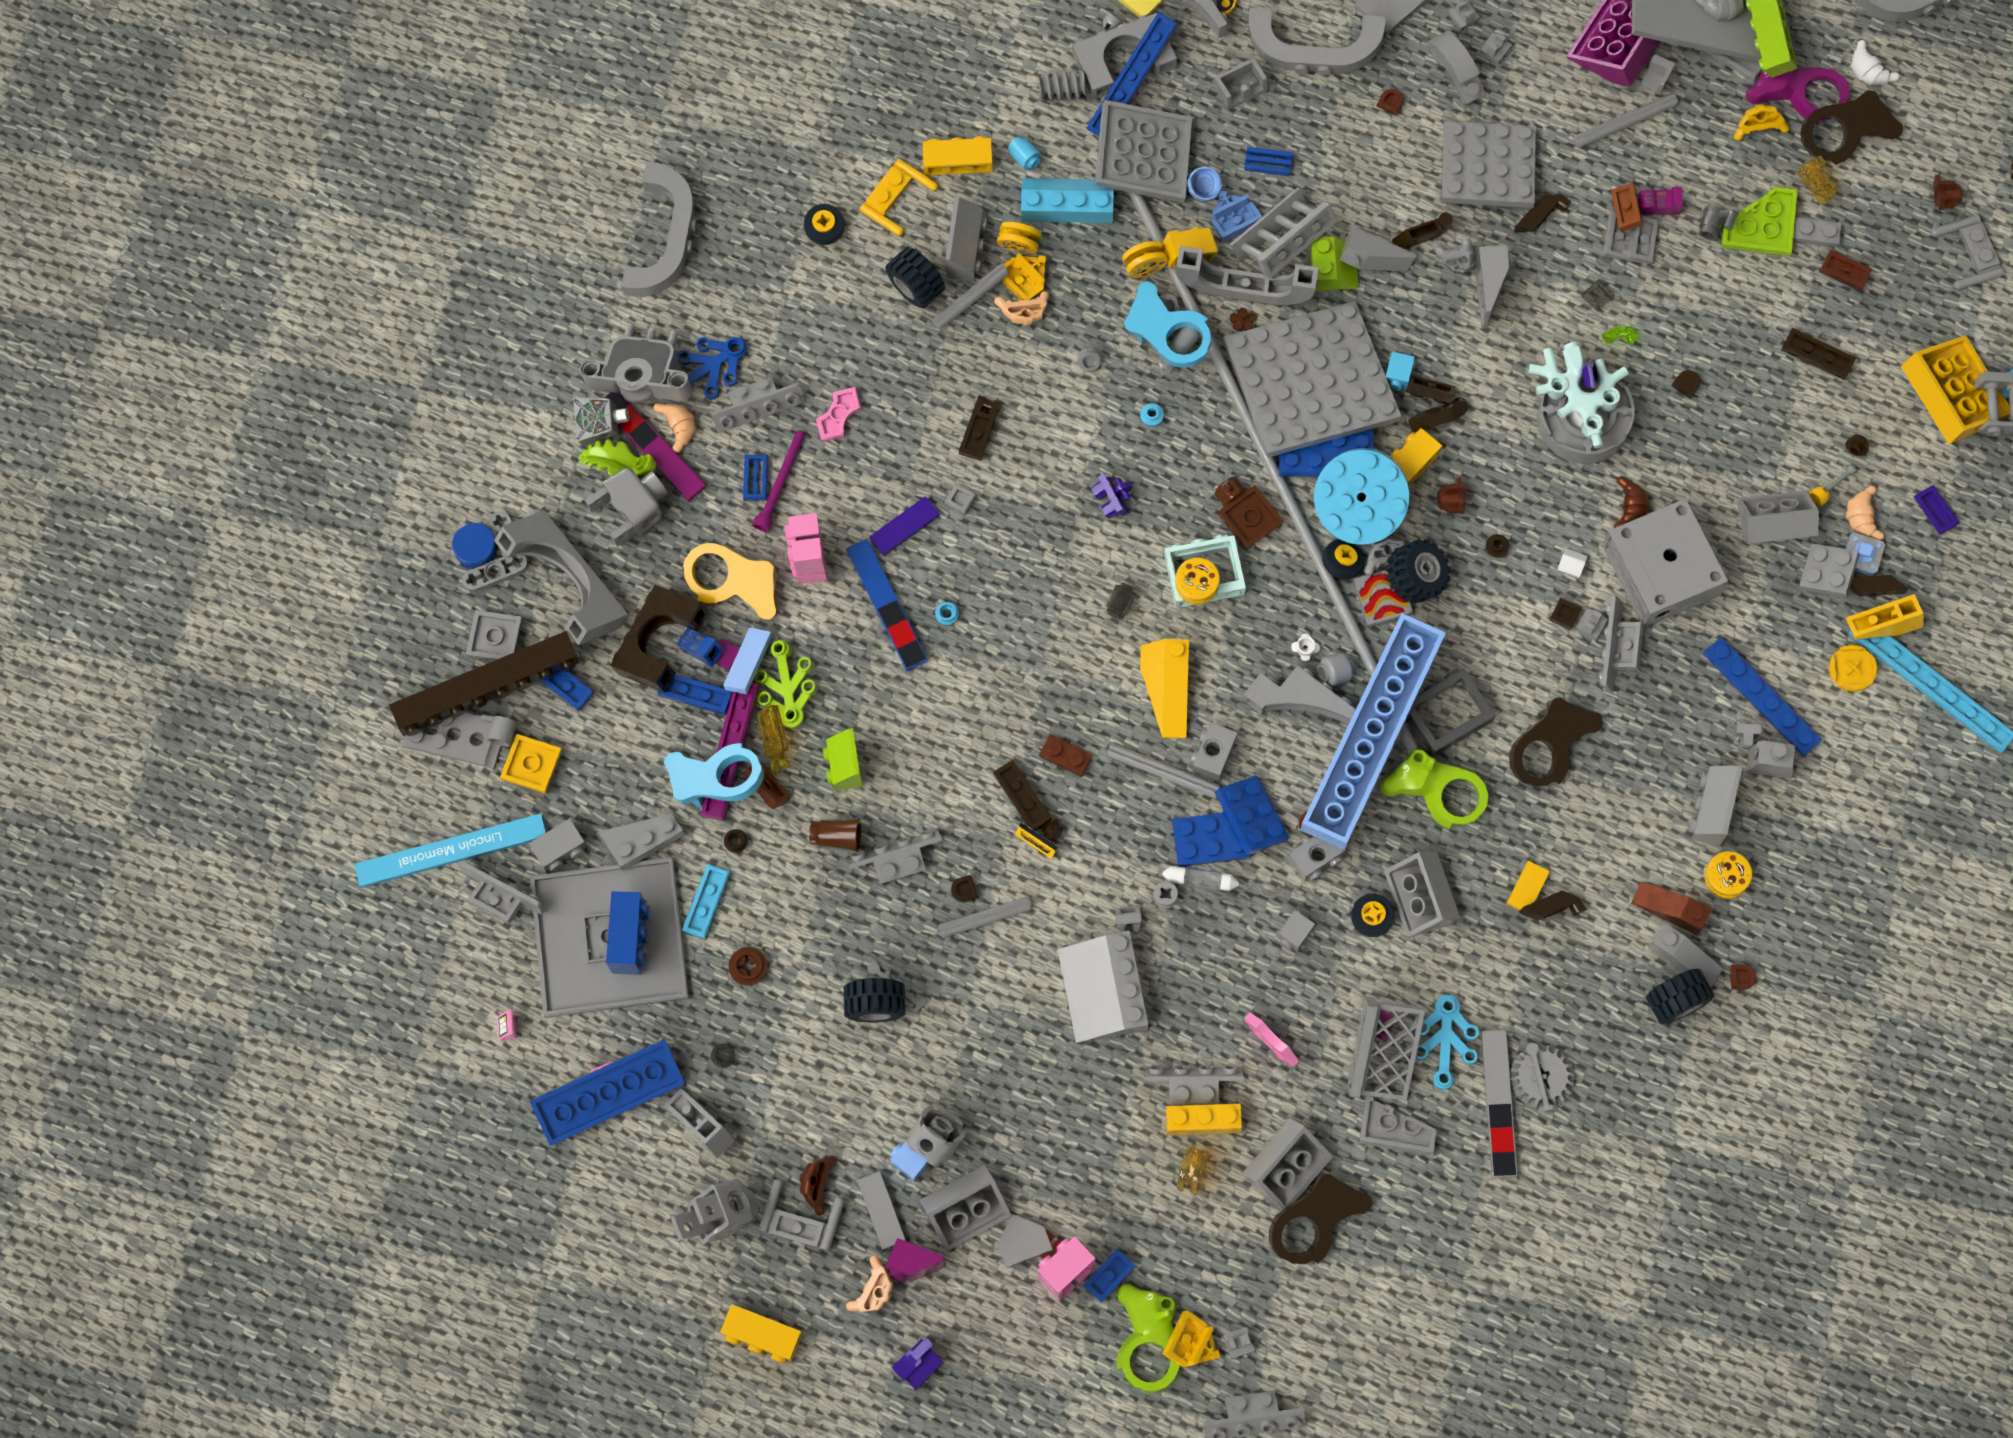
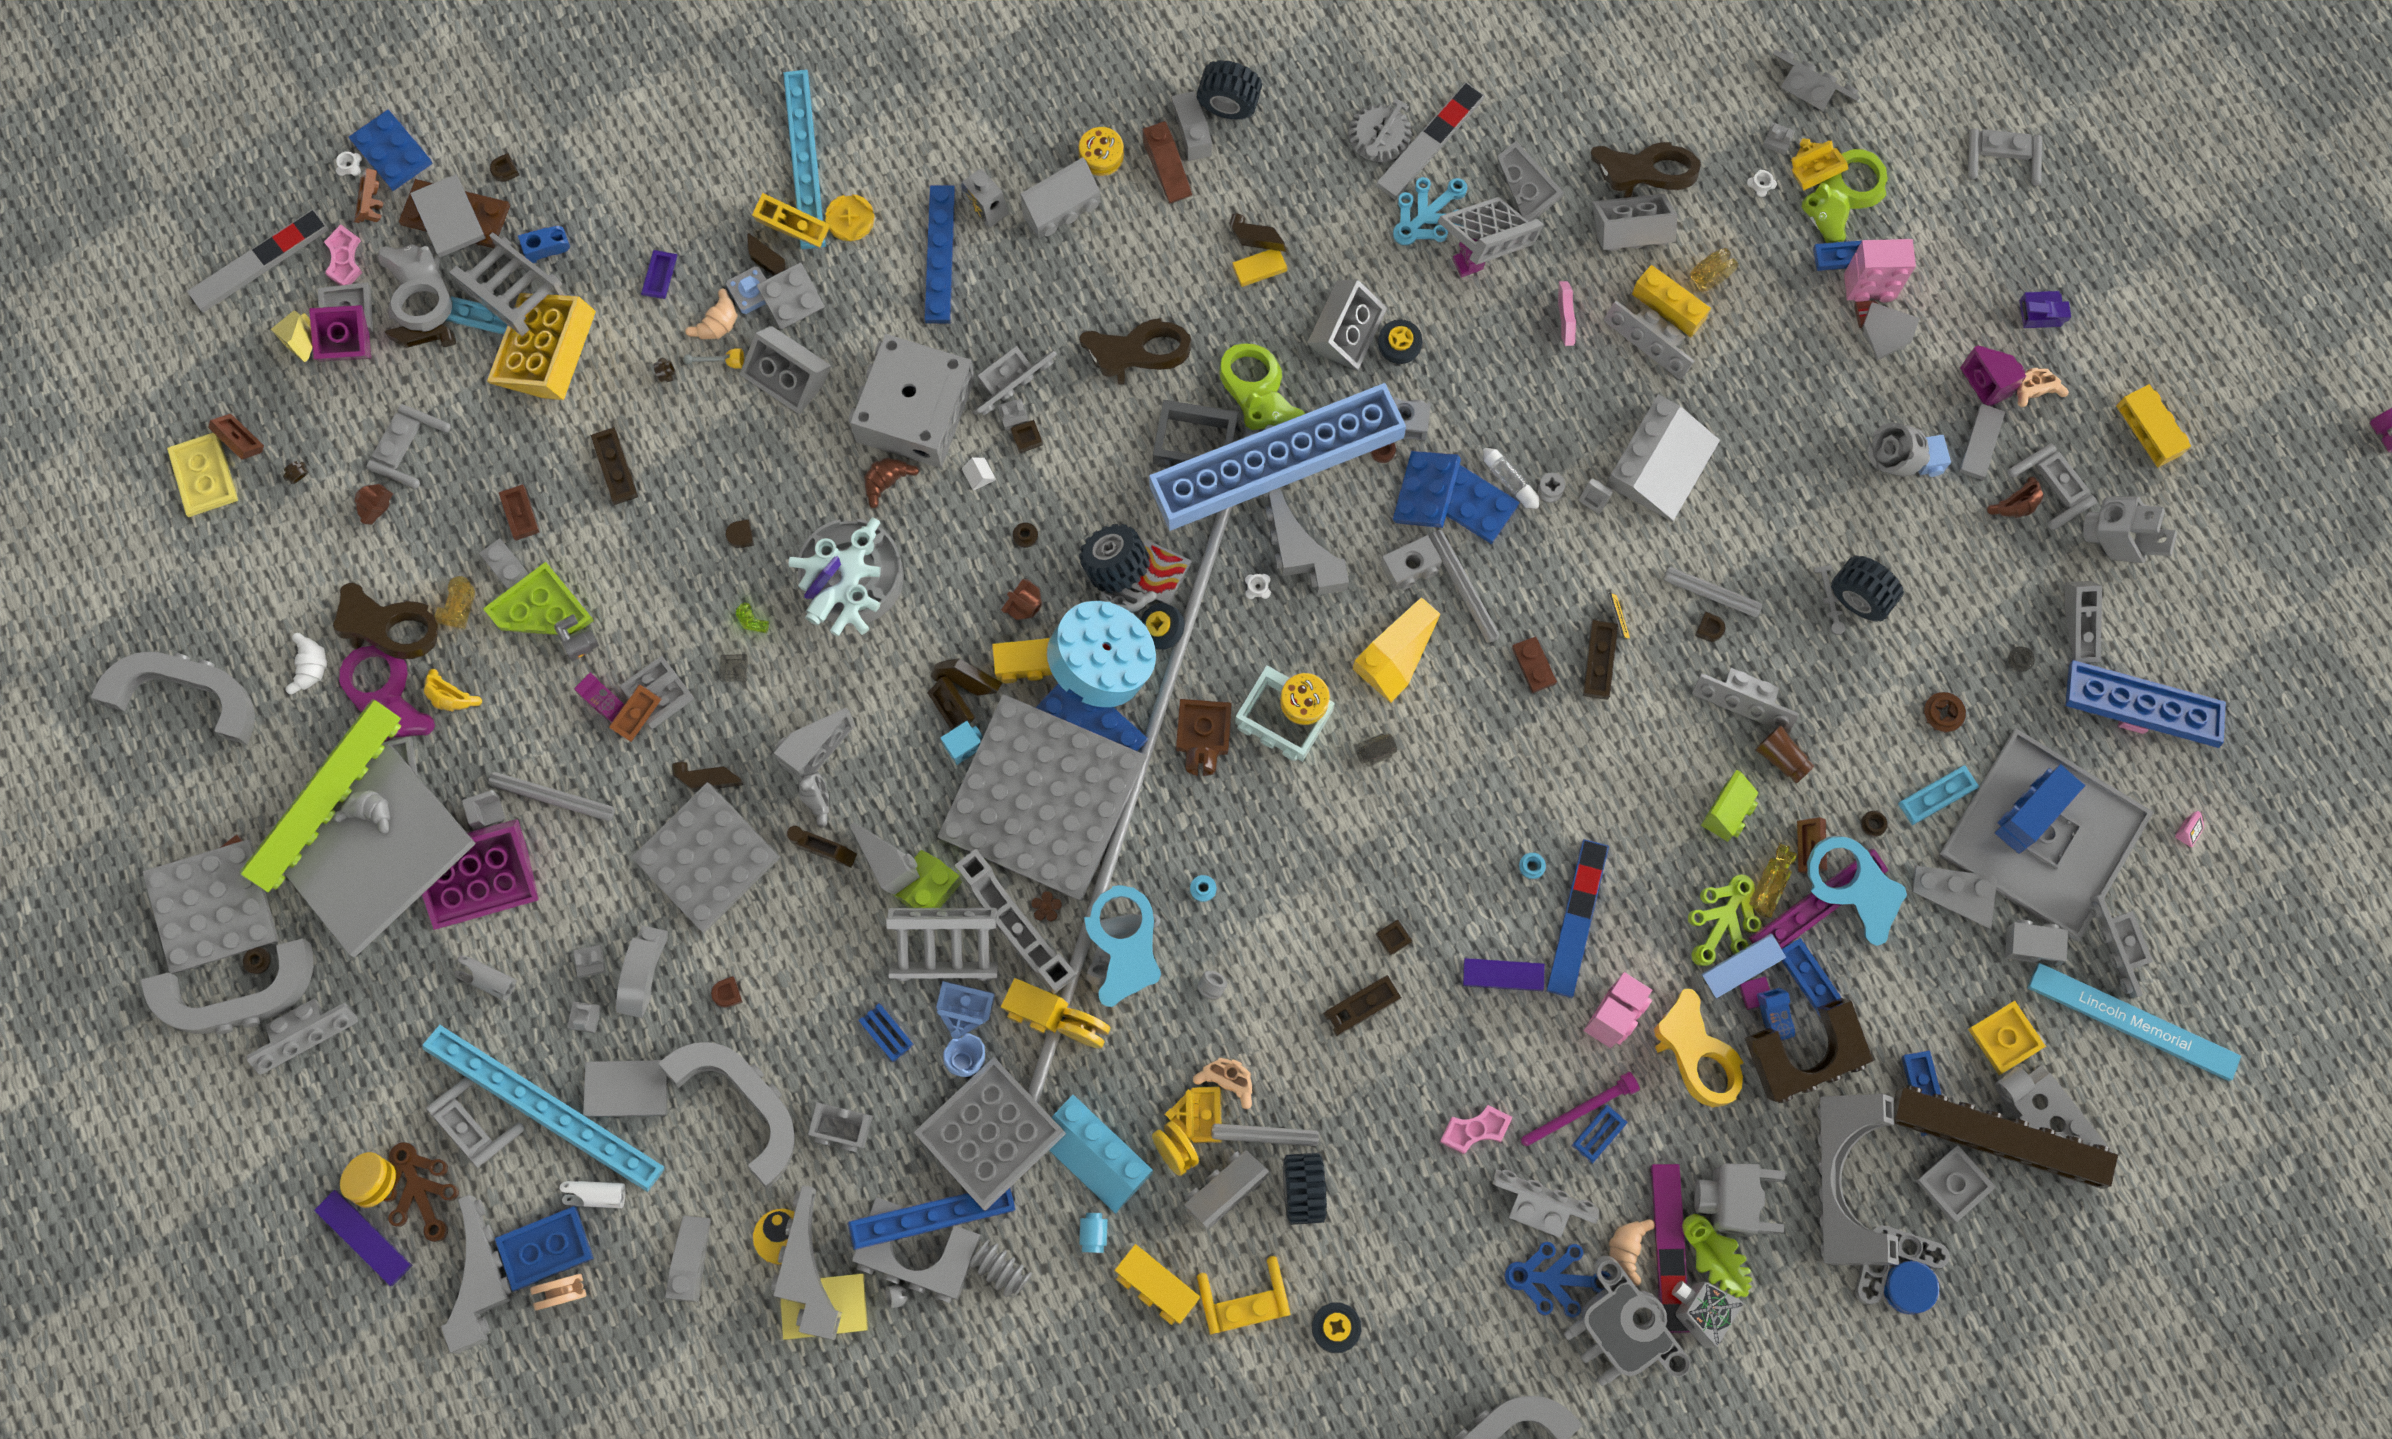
camera: 145 degrees left, 0 degrees up
(960, 499) = (1434, 957): light grey tile -> none
(965, 1208) = (1914, 389): light grey slope -> none
(998, 489) = (1393, 937): none -> dark brown tile
(1052, 830) = (1599, 610): dark brown plate -> none
(1107, 487) = (1298, 842): dark purple hips -> none
(1216, 1283) = (1766, 178): none -> white plate
(1295, 932) = (1473, 376): light grey brick -> none
(1335, 669) = (1252, 545): light grey head -> none
(1742, 977) = (1163, 79): copper tile -> none
(1746, 733) = (981, 233): light grey tile -> none

